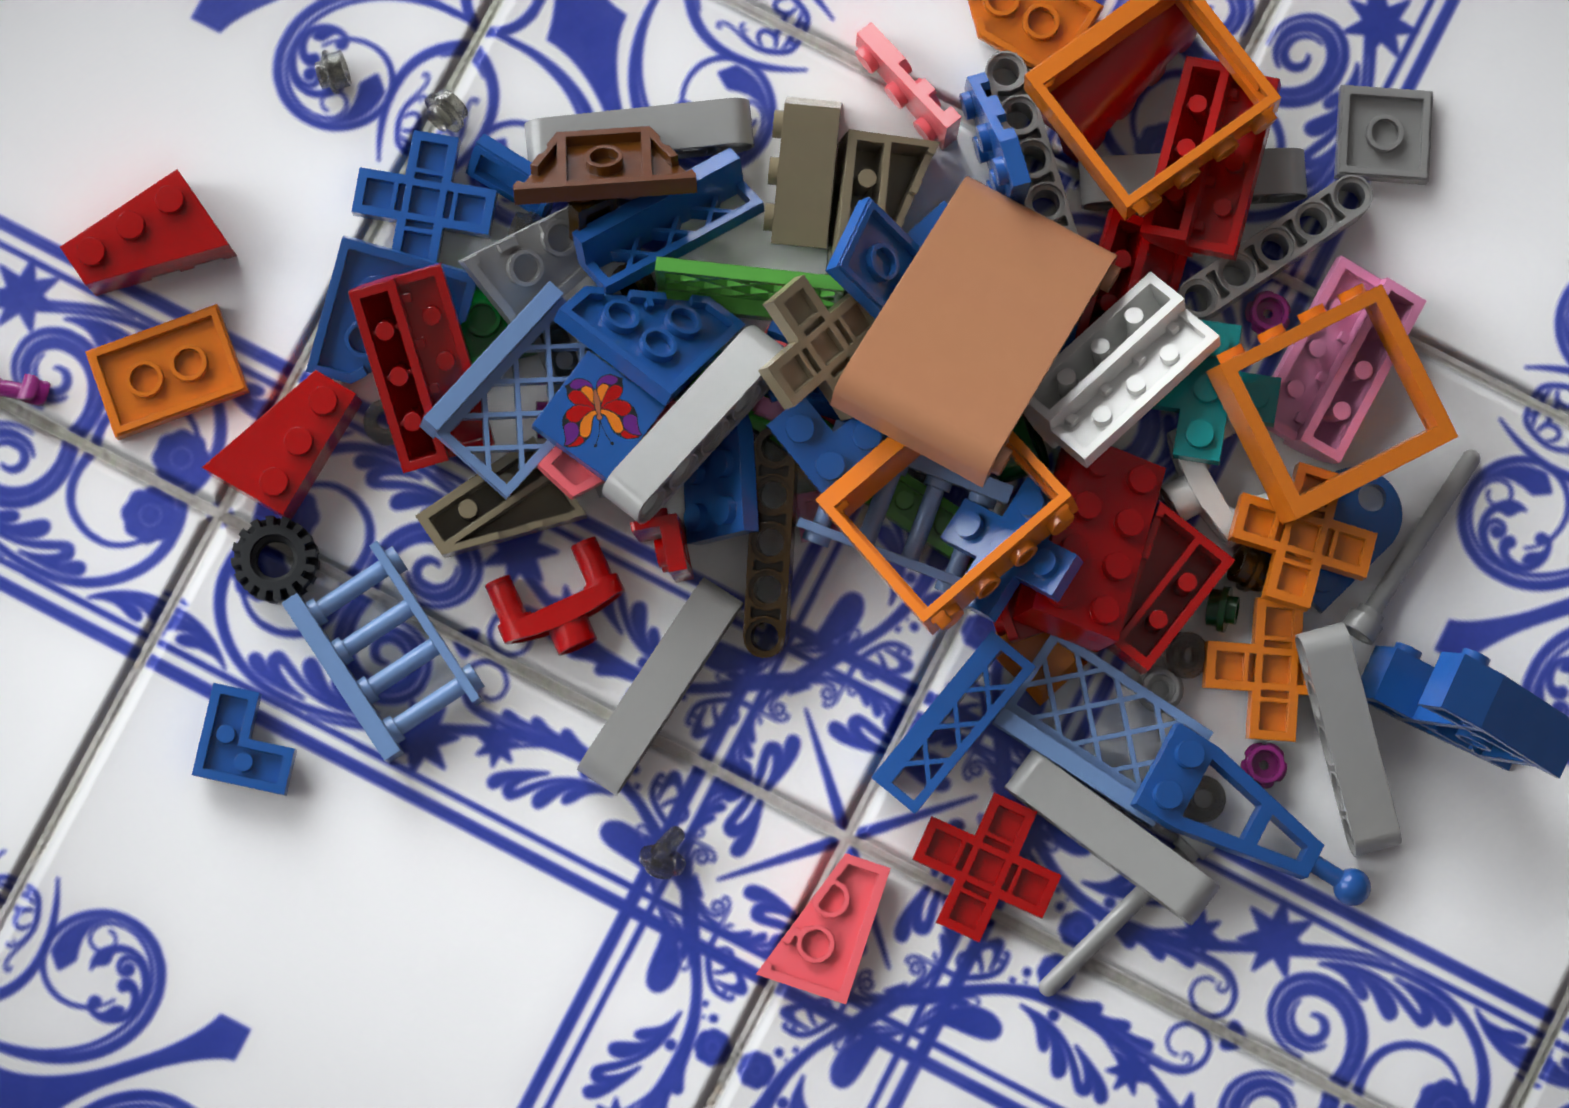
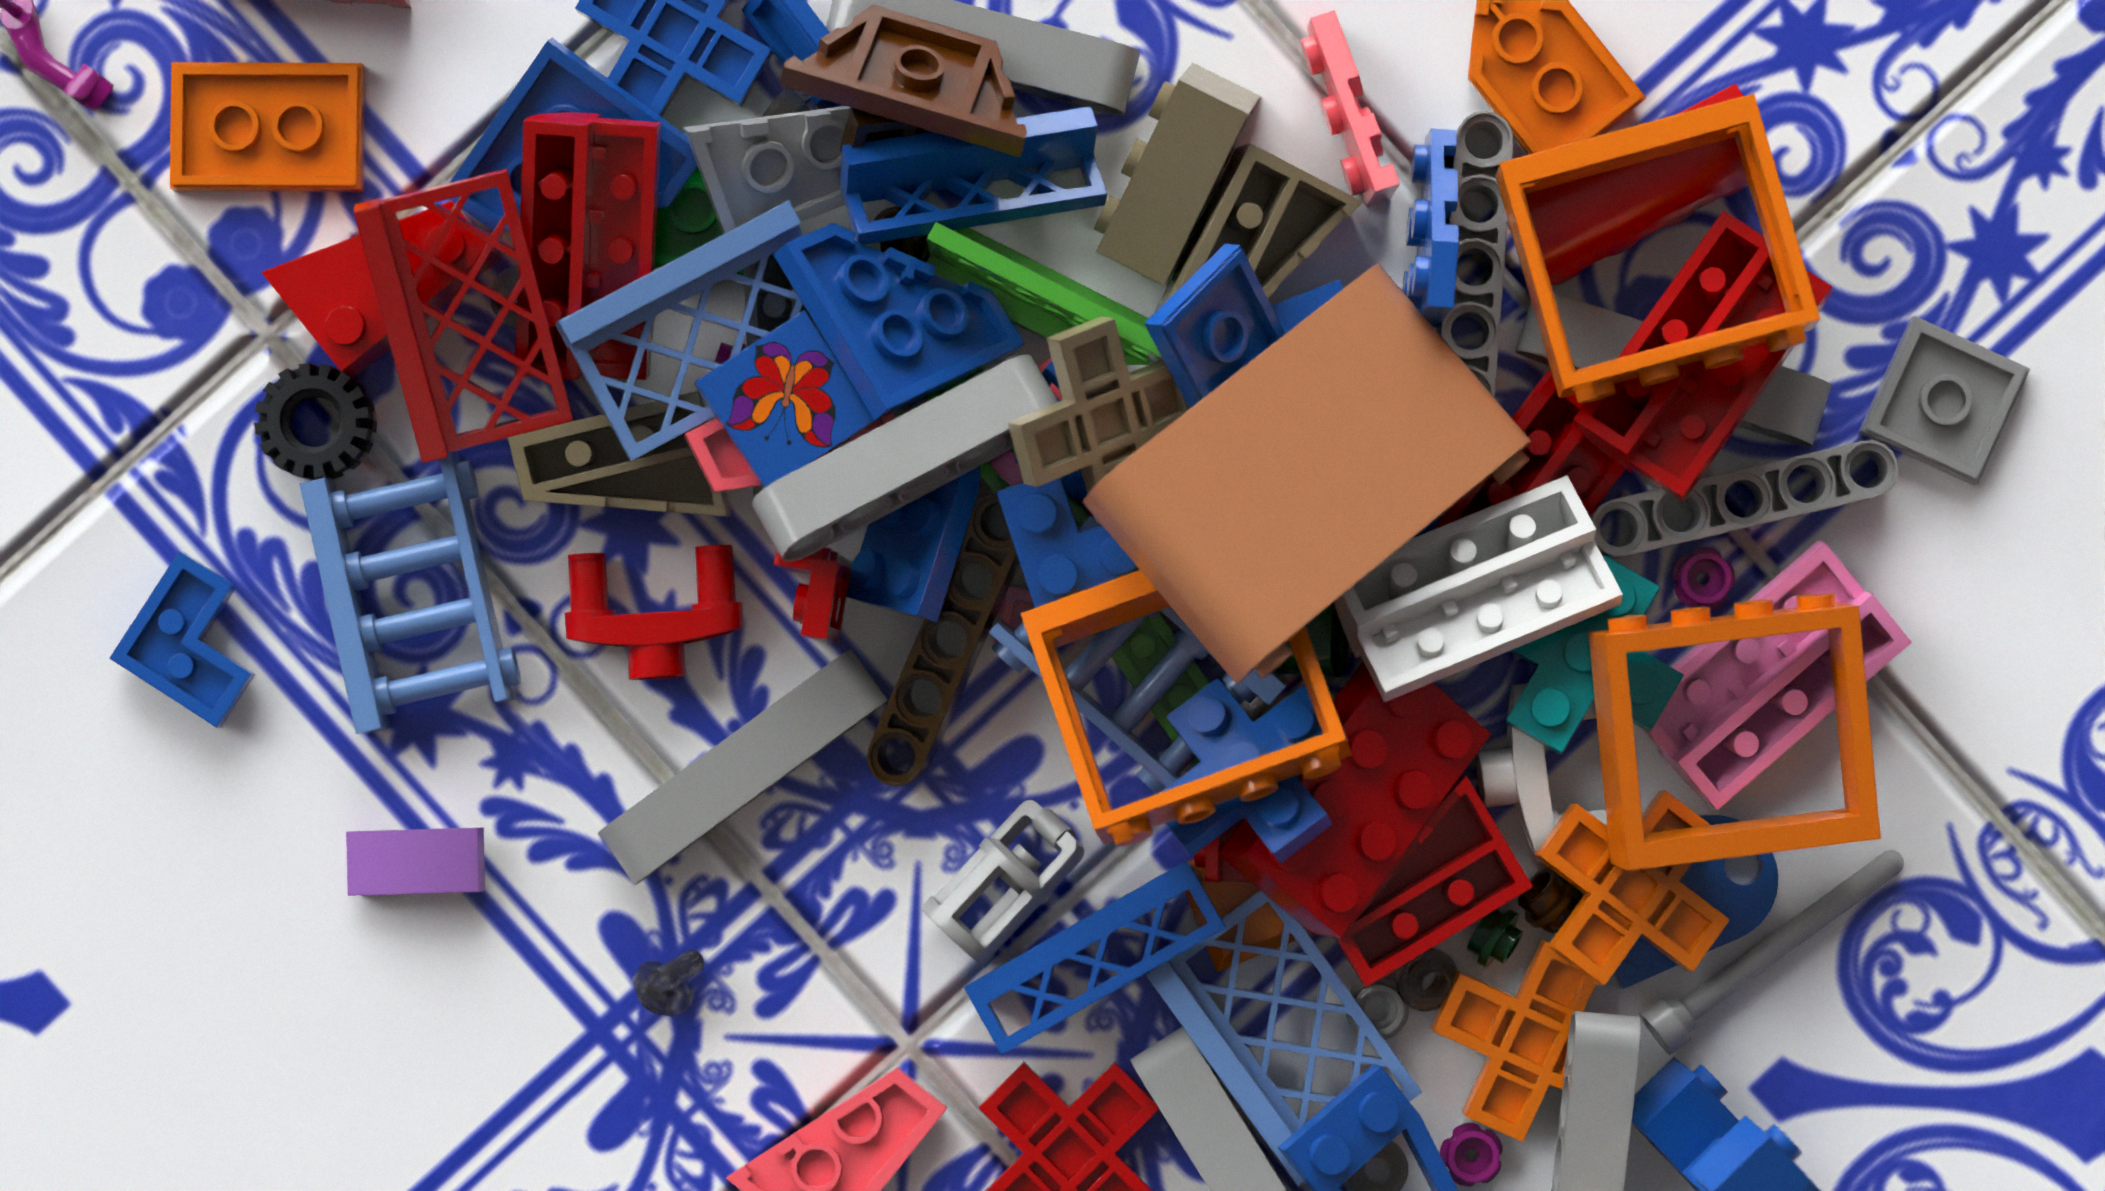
camera: 25 degrees right, 5 degrees up
(320, 466) = (409, 333): none -> red fence
(457, 836) = (415, 861): none -> medium lavender slope
(876, 685) = (1014, 868): none -> light grey piece

